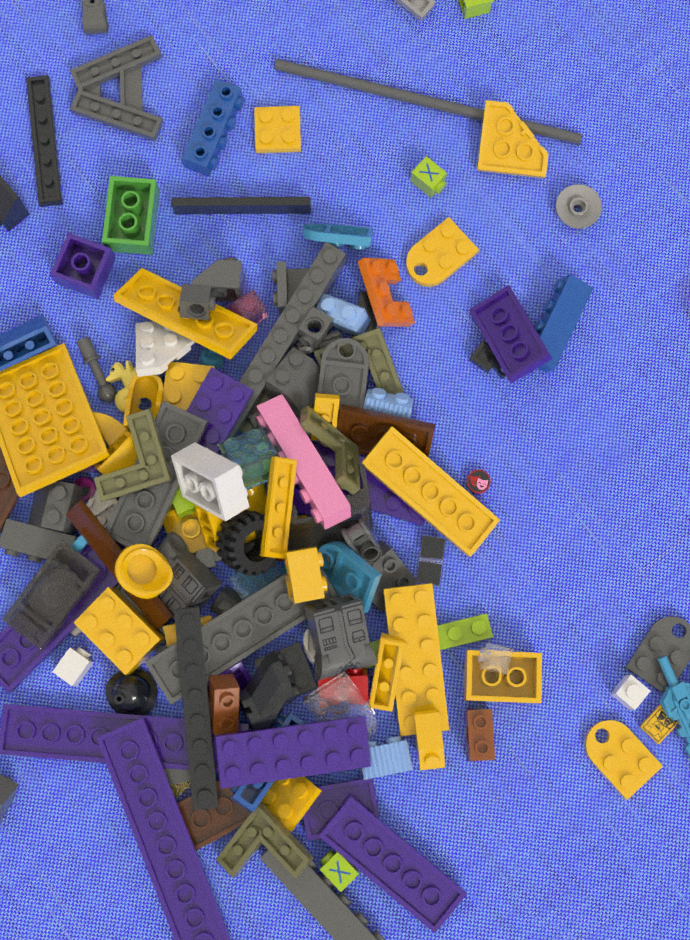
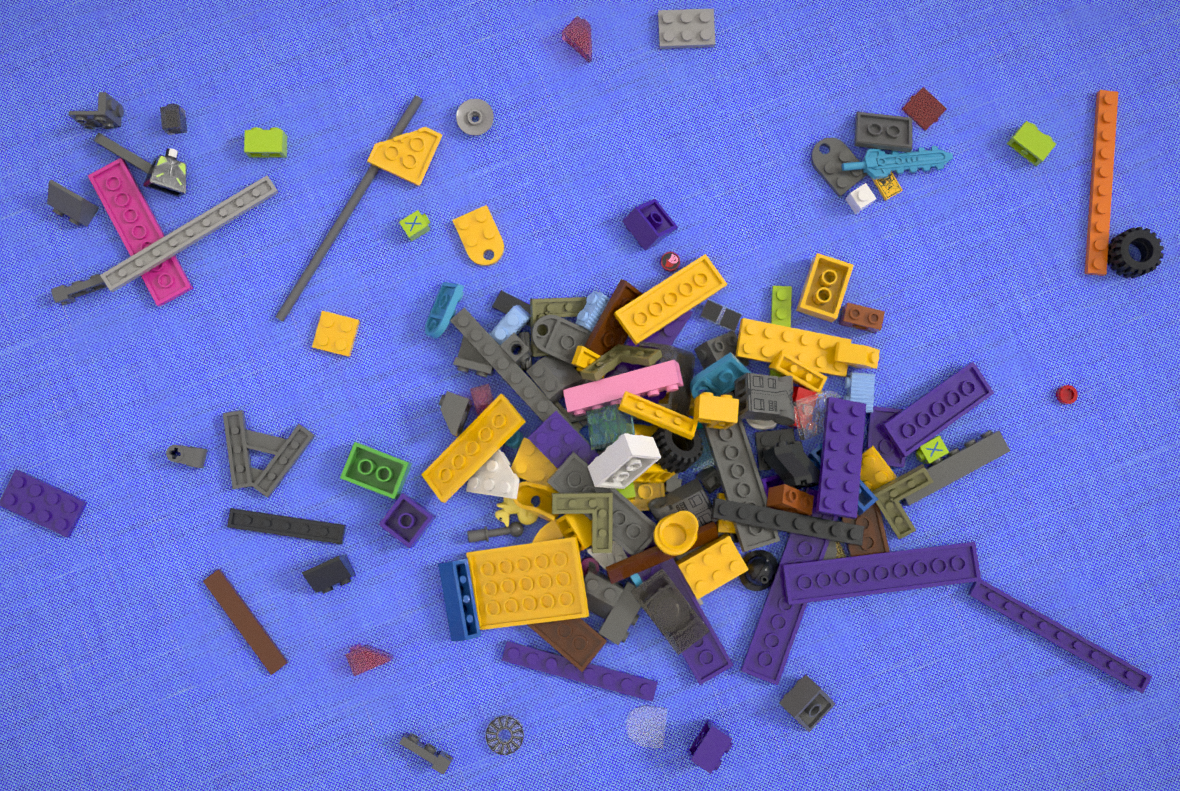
camera: 75 degrees left, 5 degrees up
(73, 666) = (726, 609): white brick -> none
(196, 302) = (469, 435): dark grey brick -> none
(212, 127) = (319, 385): blue brick -> none
(242, 205) = (393, 379): black tile -> none
(363, 541) = (698, 360): dark grey piece -> none
(376, 276) = (486, 290): orange plate -> none
(485, 359) = (576, 225): black plate -> none
(495, 658) = (814, 287): clear brick -> none
(510, 334) = (565, 200): dark purple plate -> none
(516, 443) = (649, 224): none -> dark purple slope
(561, 316) = (565, 162): blue brick -> none
(621, 757) = (904, 220): yellow plate -> none

